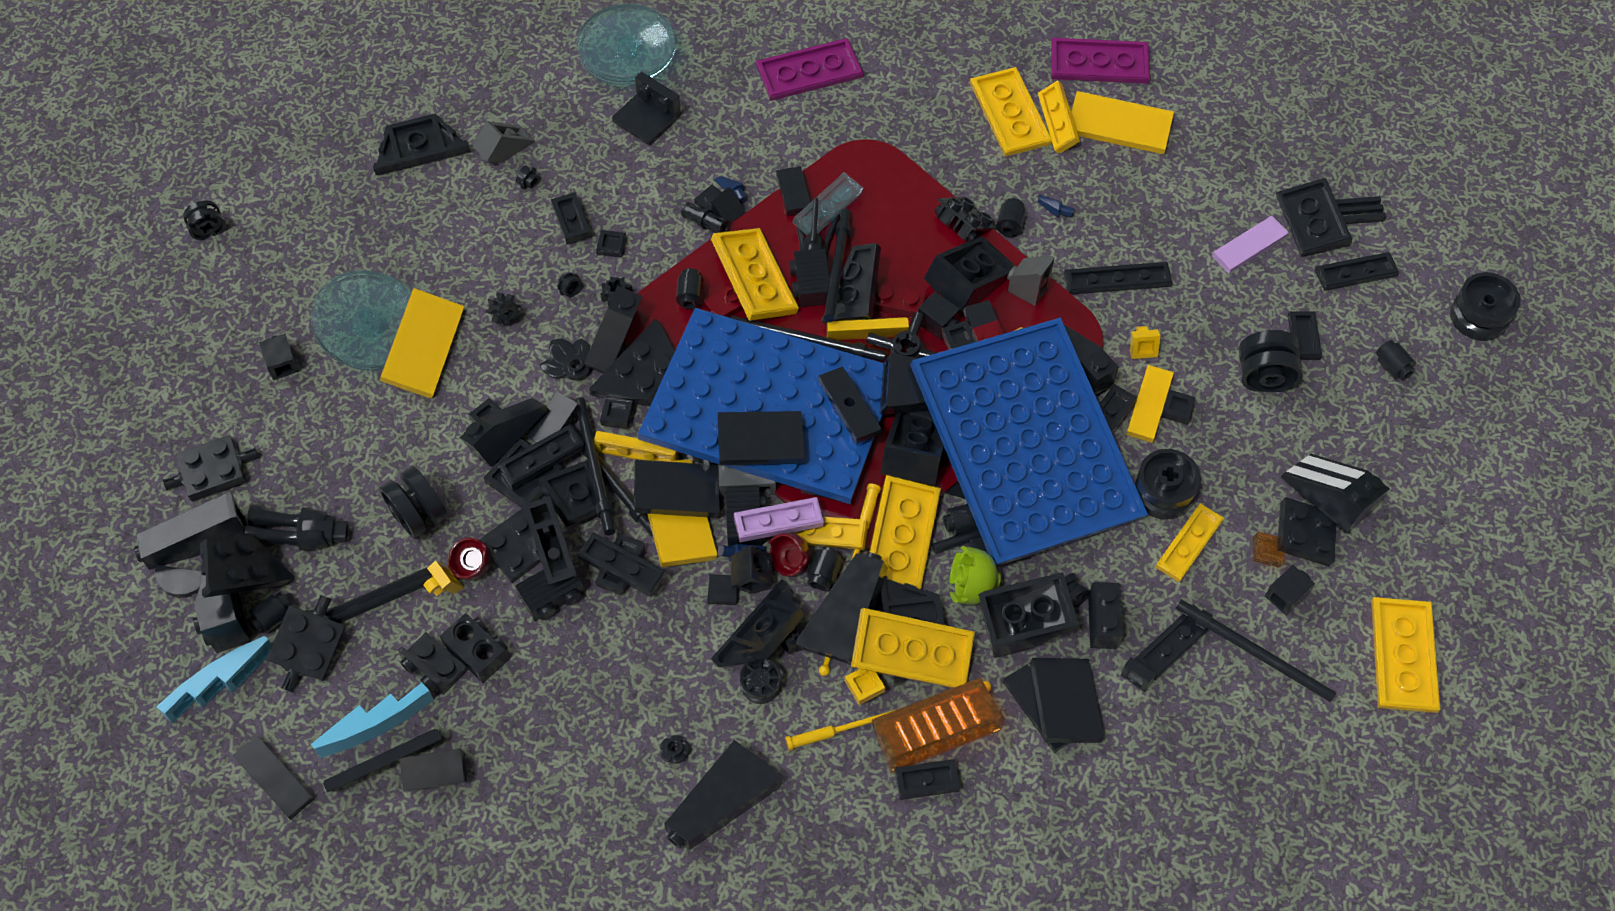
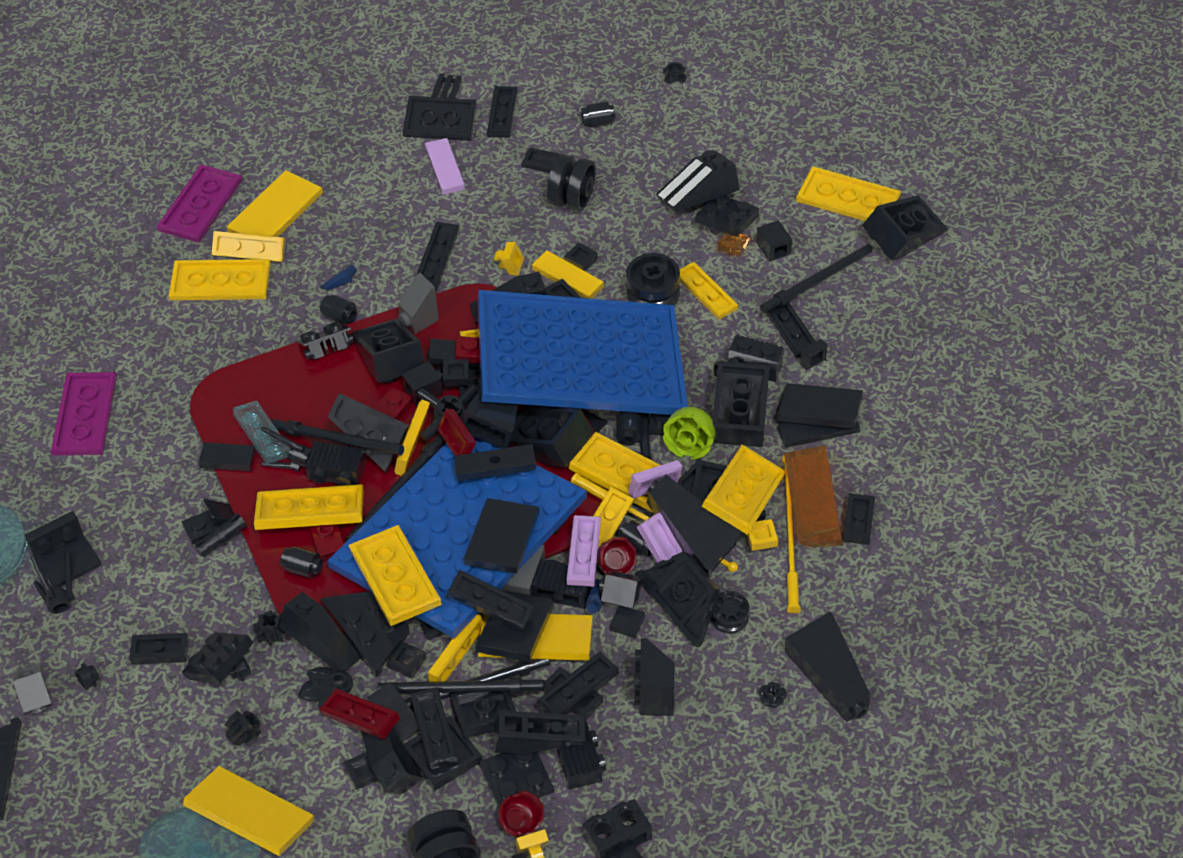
camera: 70 degrees left, 10 degrees down
(533, 390) = (359, 713): none -> dark red tile
(569, 262) = (217, 657): none -> black plate
(598, 123) = (55, 597): none -> black plant
(611, 243) = (205, 622): black tile -> none
(645, 627) = (653, 681): none -> black slope
(680, 452) = (490, 600): none -> black tile
(685, 363) = (394, 575): none -> yellow tile
(737, 187) = (189, 509): dark blue bar -> none
(818, 586) = (659, 538): none -> lavender tile
(872, 361) = (456, 433): none -> dark red plate
(896, 563) = (641, 481): none -> lavender tile
(1379, 725) = (903, 226): none -> black slope
(1485, 306) = (576, 46): black wheel -> none
(1506, 412) = (674, 72): none -> black plate

